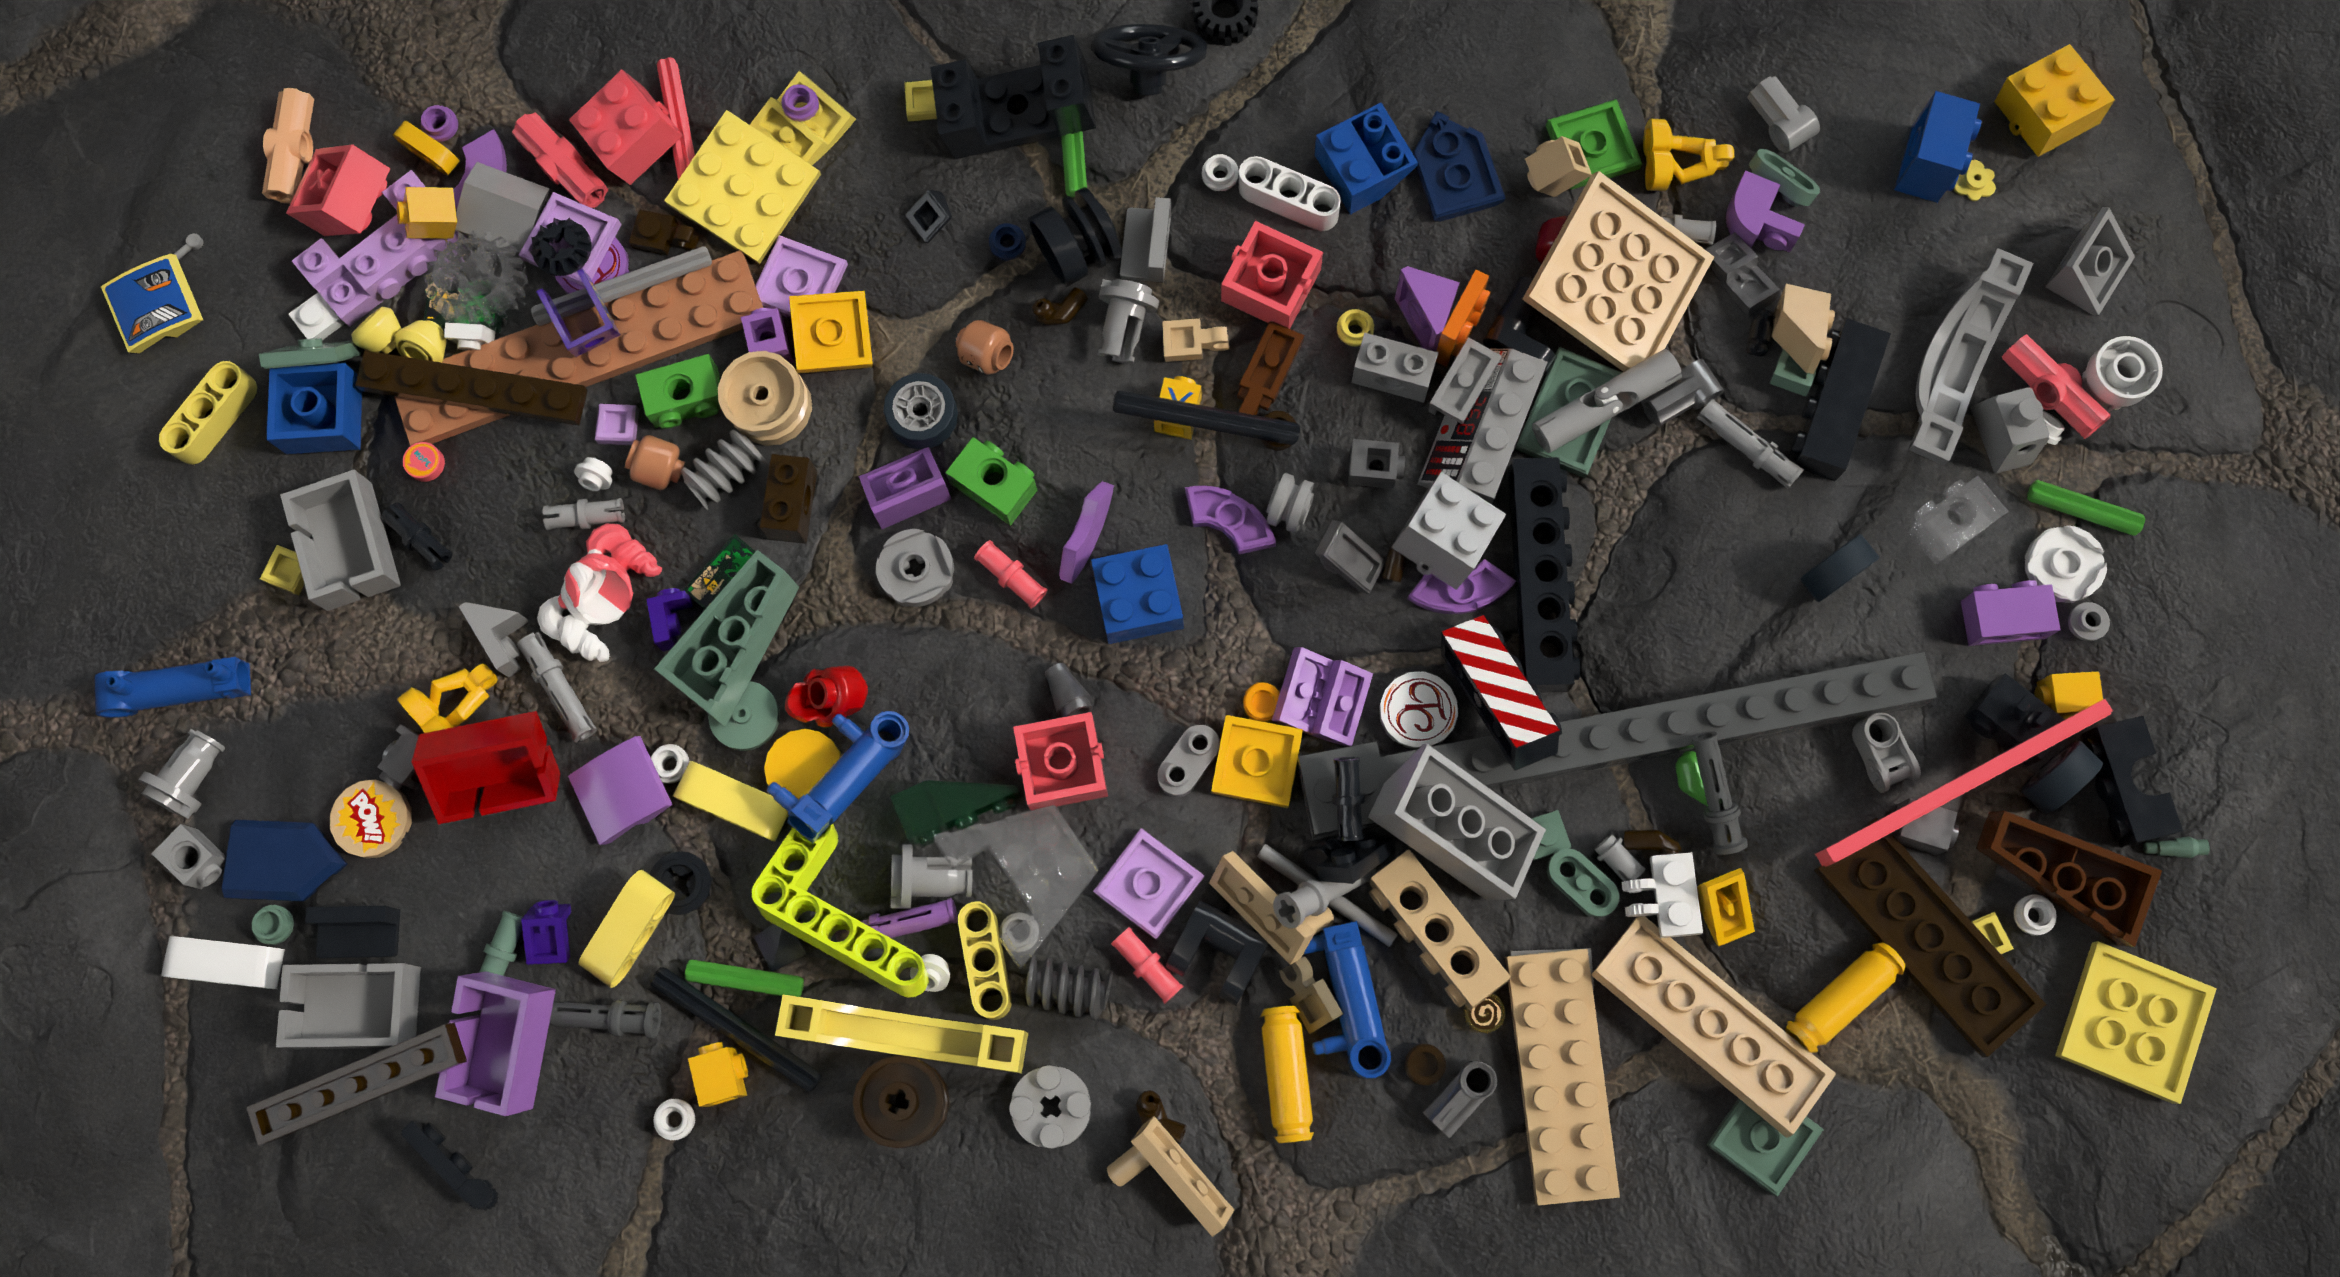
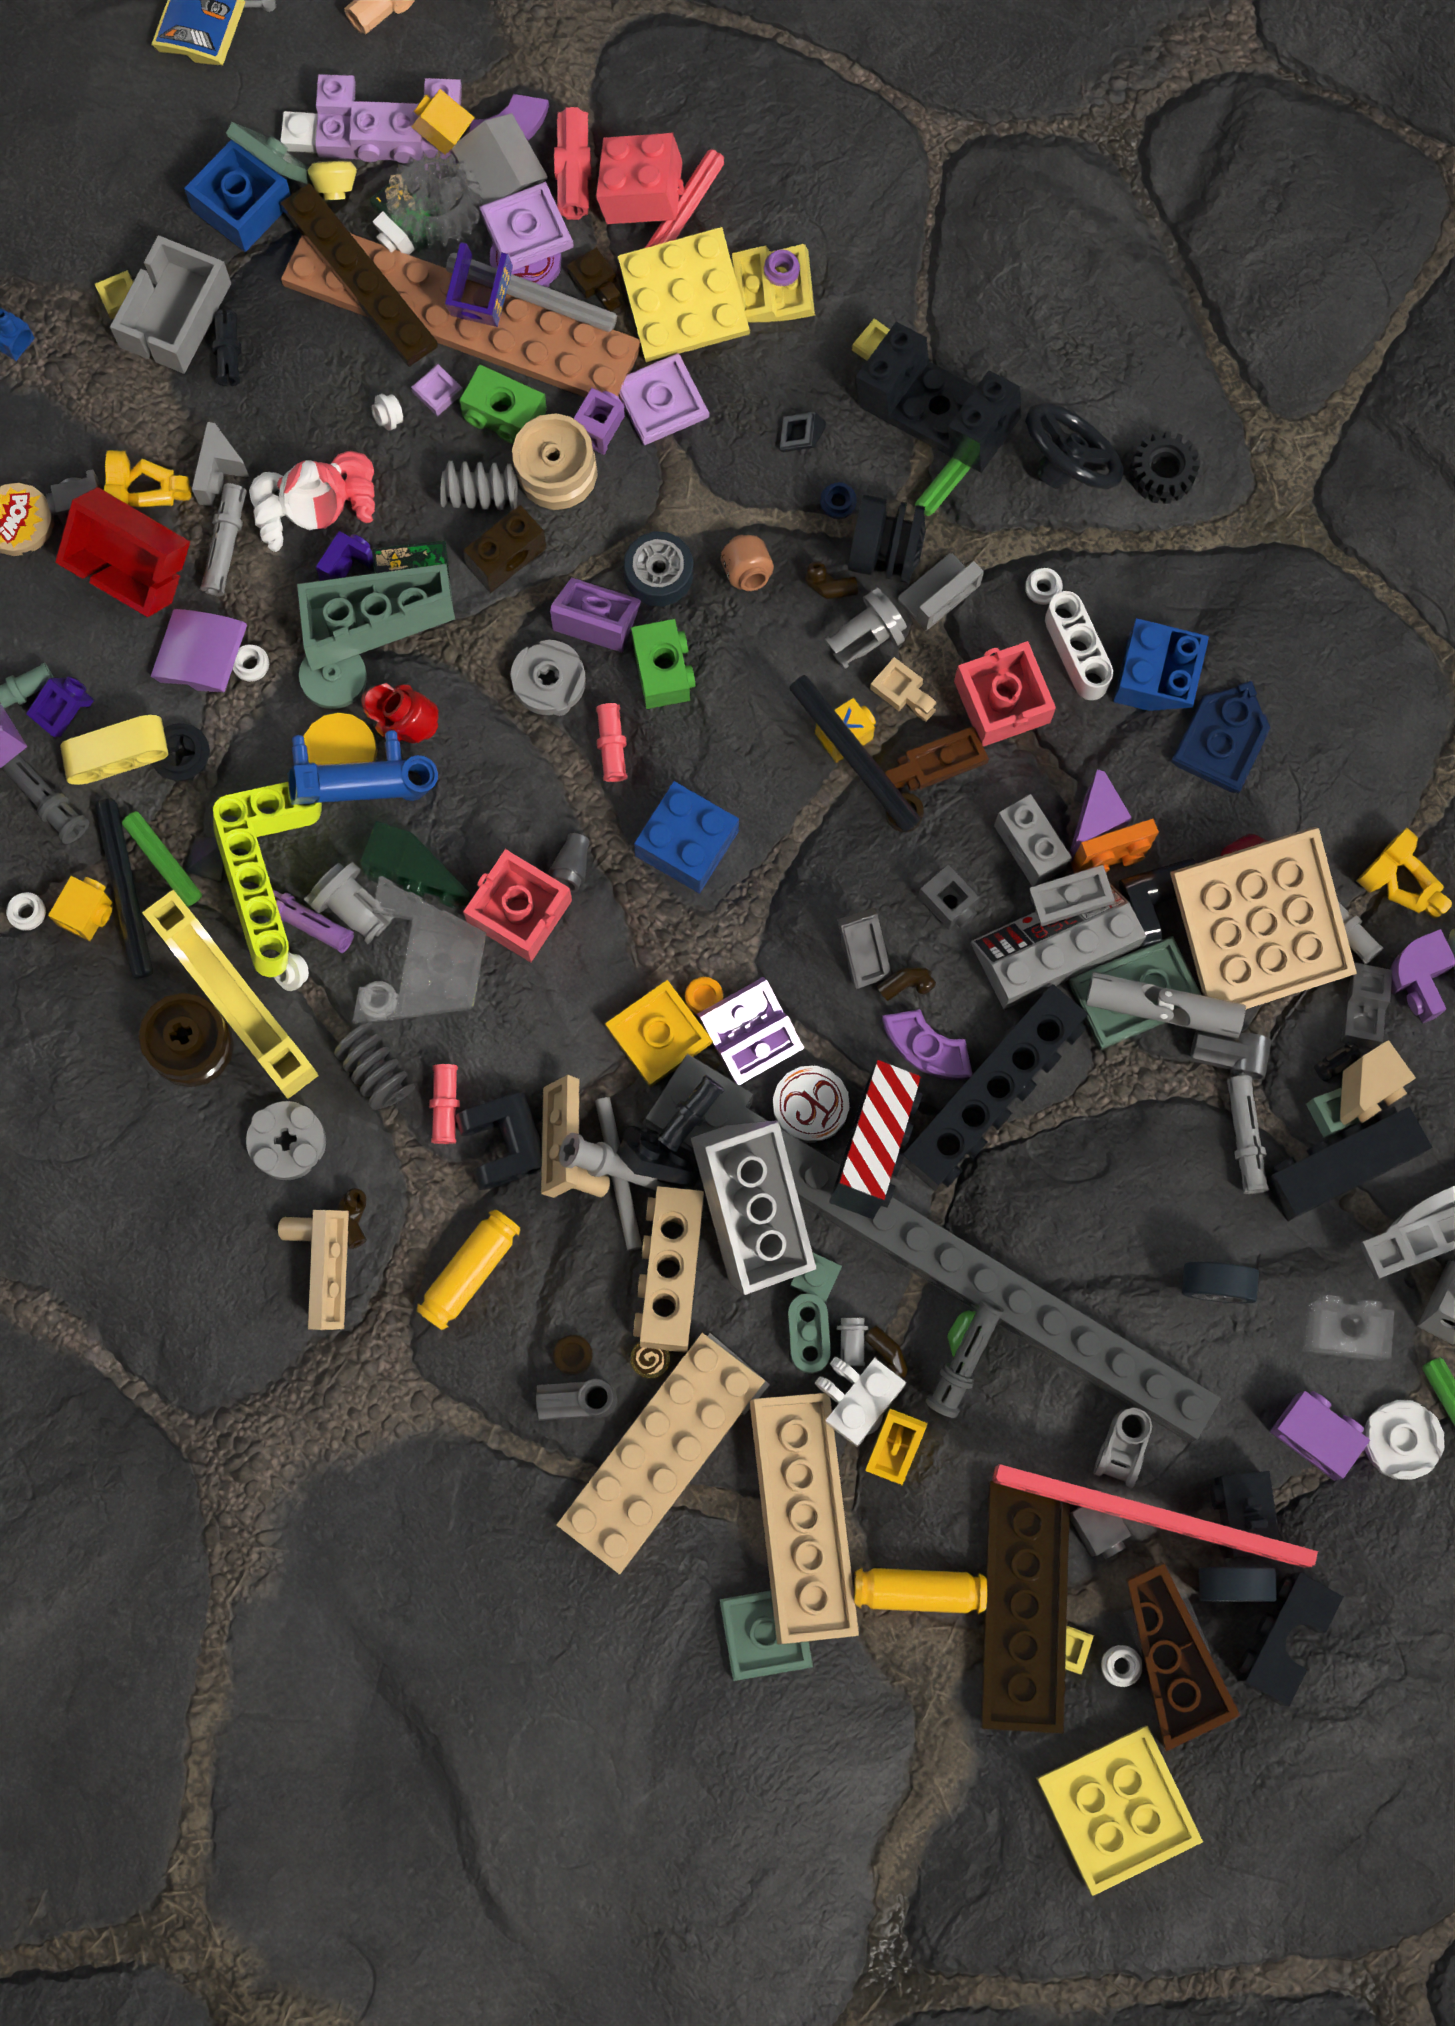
camera: 35 degrees right, 0 degrees up
(190, 418) = (149, 129): light yellow beam -> none
(339, 191) = (396, 52): coral brick -> none
(421, 341) = (355, 211): light yellow cone -> none
(423, 461) = (280, 299): coral tile -> none
(426, 148) = (487, 73): yellow beam -> none
(433, 116) = (514, 54): medium lavender plate -> none
(566, 260) = (507, 239): black gear -> none
(583, 514) = (354, 433): light grey pin -> none
(654, 462) = (436, 439): nougat head -> none
(731, 801) = (265, 725): light yellow beam -> none
(830, 331) = (647, 454): yellow plate -> none
(972, 945) = (334, 979): light yellow beam -> none
(1086, 532) = (693, 760): medium lavender tile -> none
(1148, 884) = (500, 1050): lavender tile -> none
(1189, 760) = (612, 992): light grey plate -> none
(1231, 515) = (810, 843): medium lavender tile -> none
(1290, 503) = (859, 870): light grey wheel -> none
(1312, 998) = (537, 1233): dark tan plate -> none
(1354, 317) = (1036, 777): light yellow plate -> none
(1354, 996) = (566, 1260): blue piece -> none
(1449, 531) = (953, 992): light grey brick -> none
(1557, 166) = (1300, 801): tan brick -> none
(1602, 138) = (1349, 810): bright green tile -> none
(2069, 692) = (1307, 1529): yellow brick -> none
(2081, 629) = (1366, 1501): light grey plate -> none
(2179, 847) = (1280, 1720): sand green piece -> none

